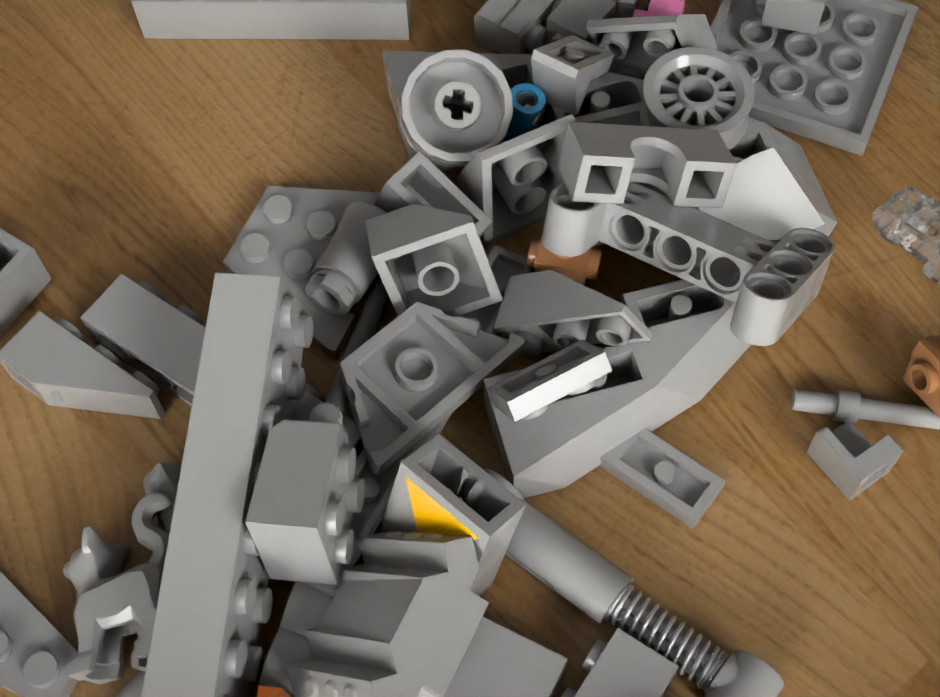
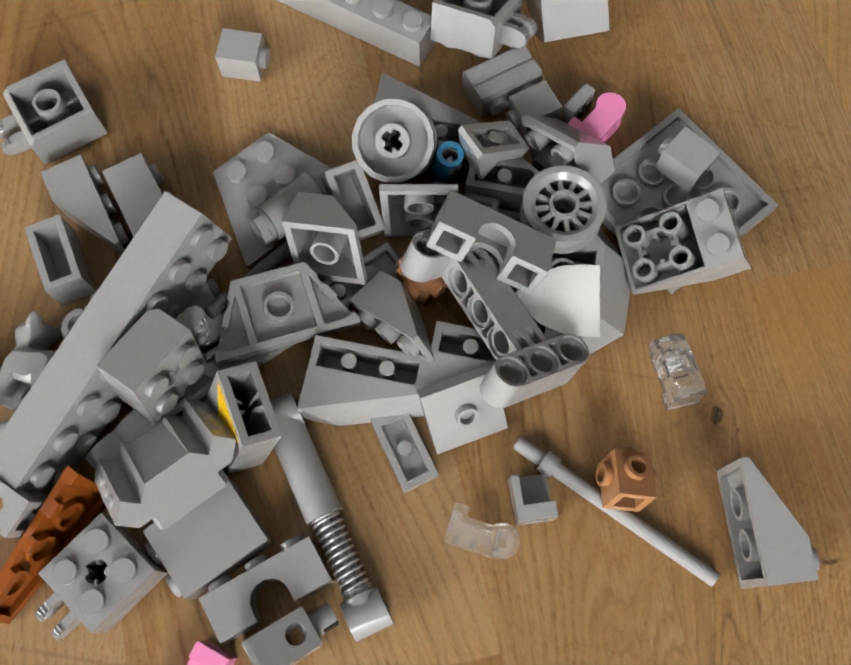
camera: 25 degrees right, 10 degrees up
(83, 452) = (60, 260): none -> light grey brick
(184, 111) = (242, 55): none -> light grey brick
(563, 373) = (349, 358): light grey plate -> none
(711, 386) = (458, 412): none -> light grey plate
(819, 528) = (489, 540): none -> clear leg
(849, 87) = (683, 244): none -> light grey slope

